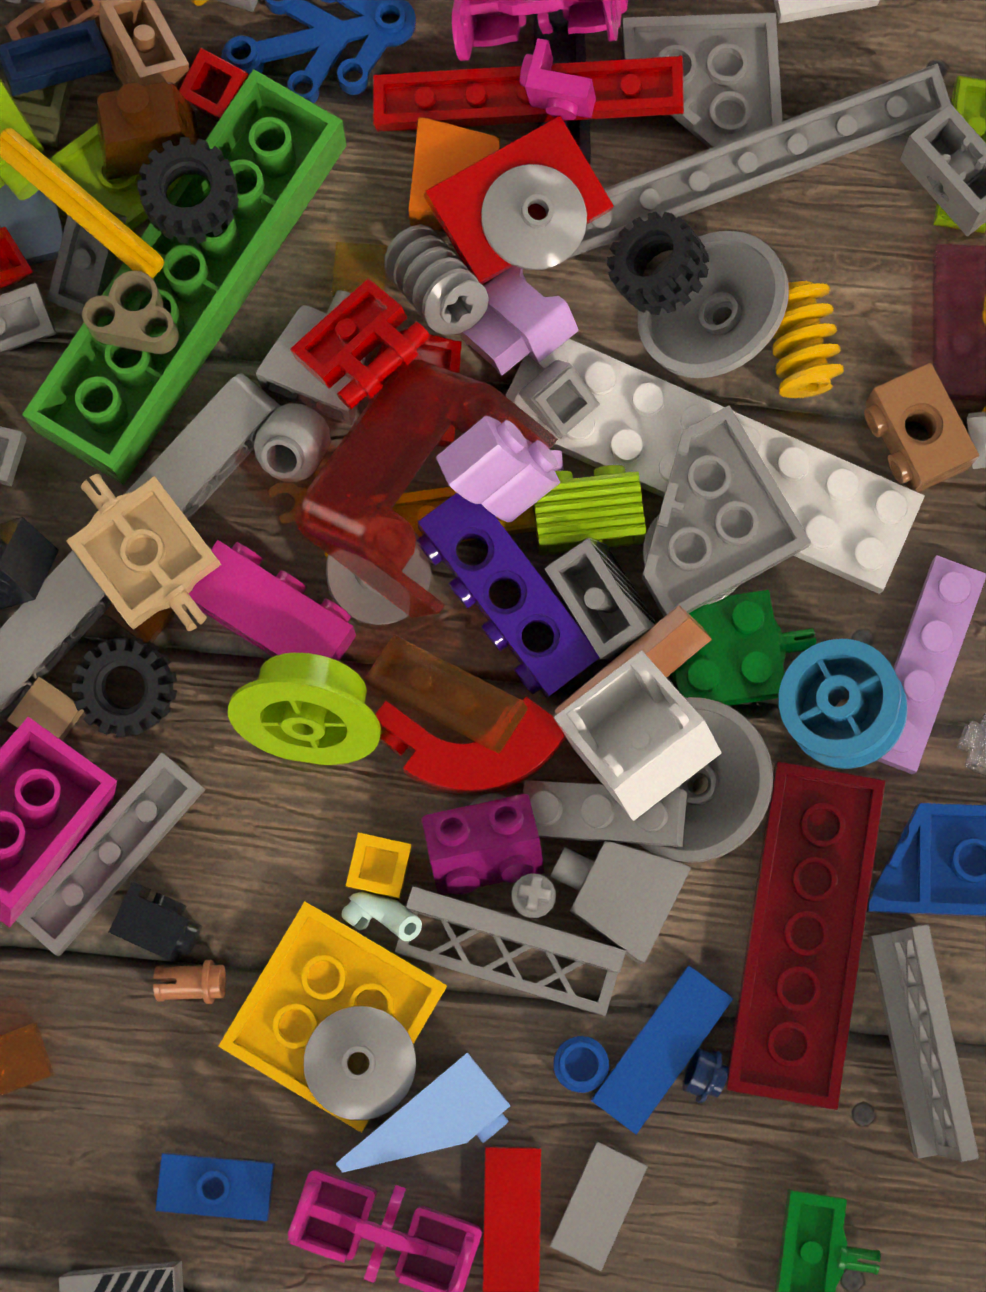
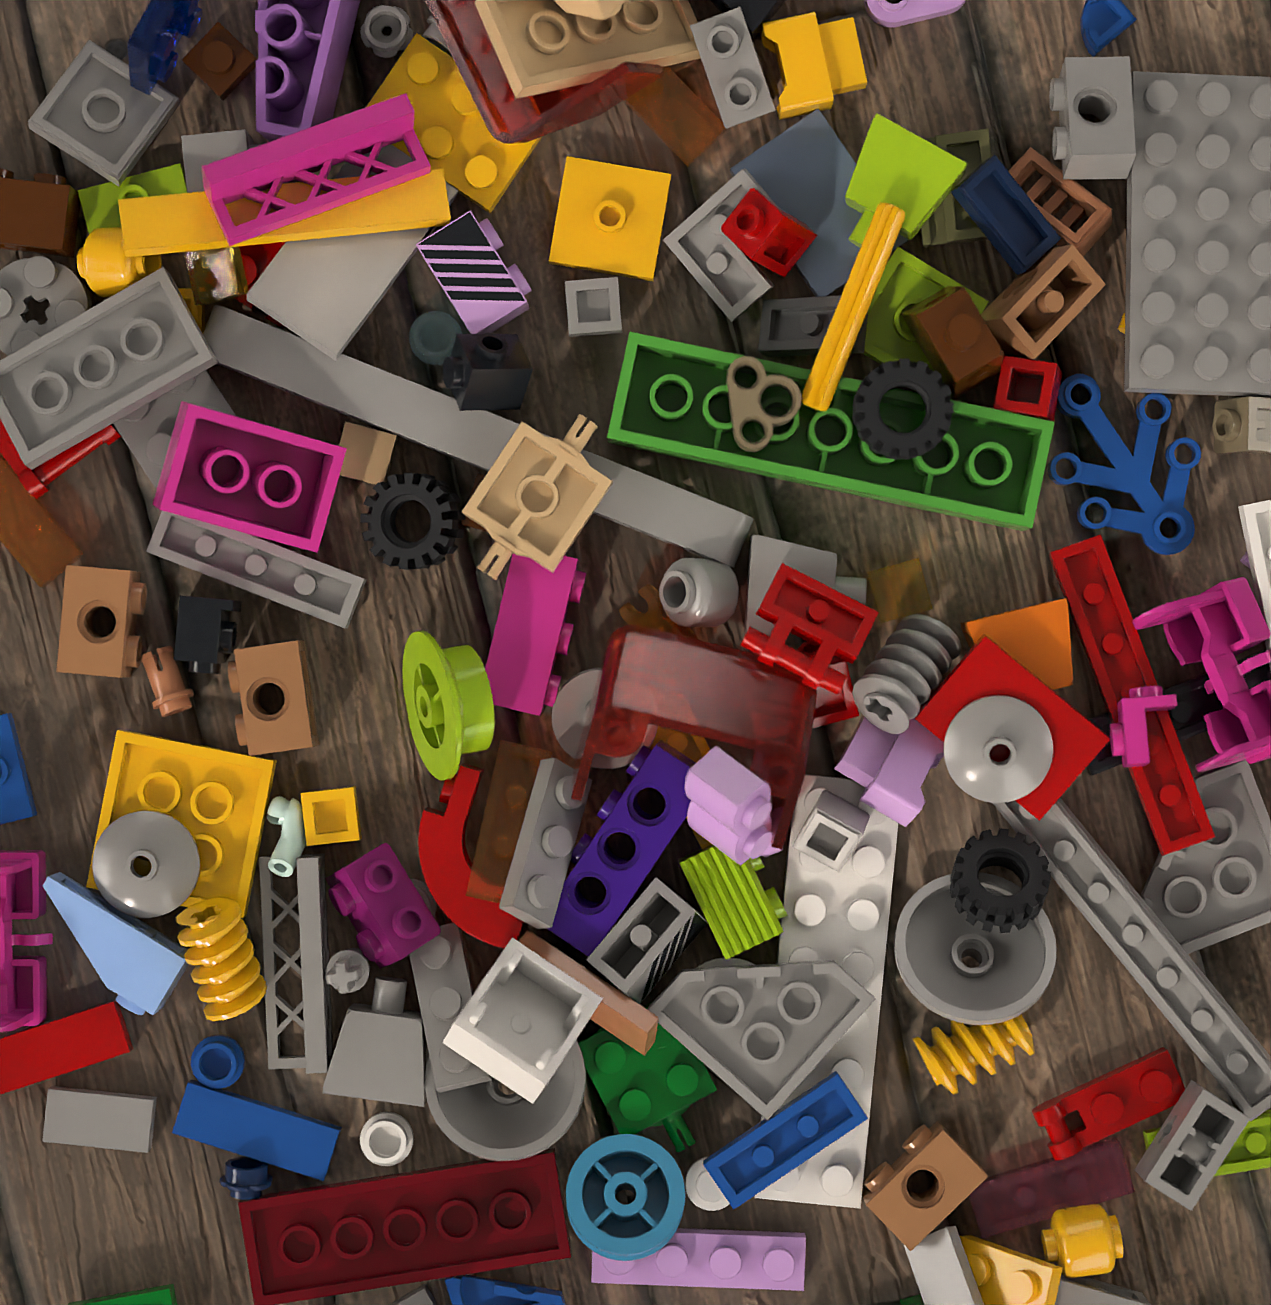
camera: 70 degrees right, 10 degrees up
(72, 1025) = (80, 646): none -> medium nougat brick
(217, 859) = (288, 668): none -> medium nougat brick
(477, 662) = (544, 846): none -> light grey plate
(478, 1013) = (222, 958): none -> yellow piece
(712, 923) = (386, 1139): none -> white plate
(836, 535) = (785, 1140): none -> blue plate
(857, 621) = (703, 1189): none -> white plate
(898, 241) = (1110, 1103): none -> red plate

